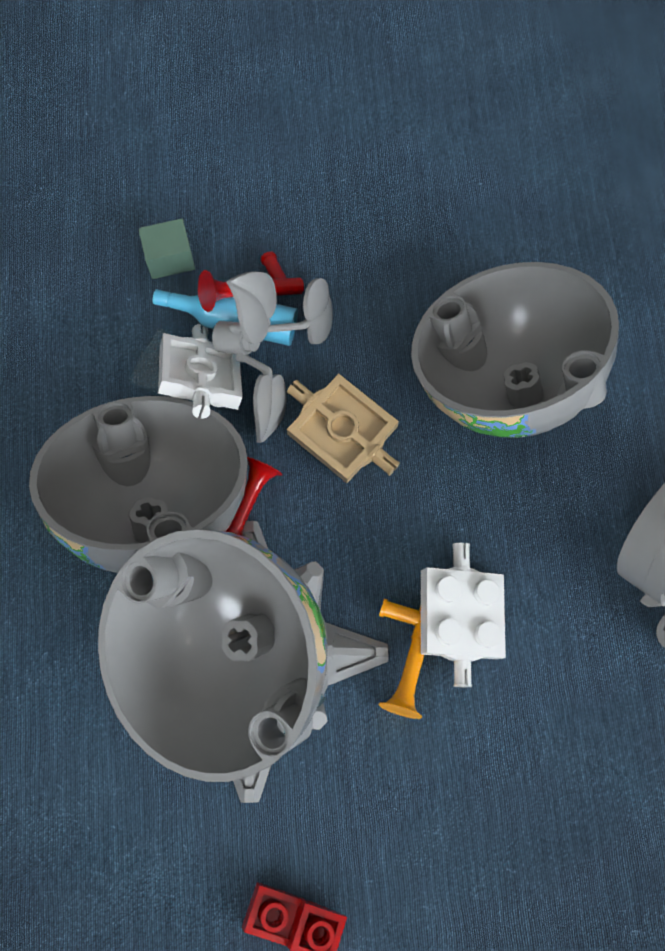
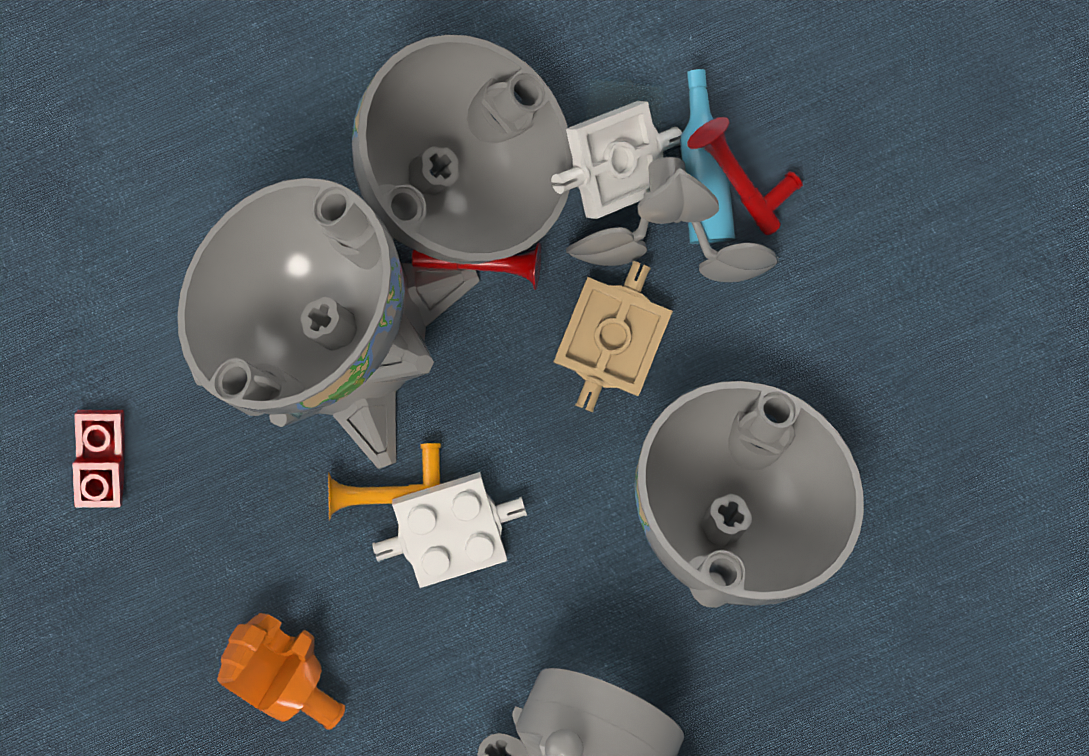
camera: 70 degrees right, 15 degrees up
(166, 248) = (760, 60): sand green panel -> none
(549, 814) = (277, 672): none -> orange piece

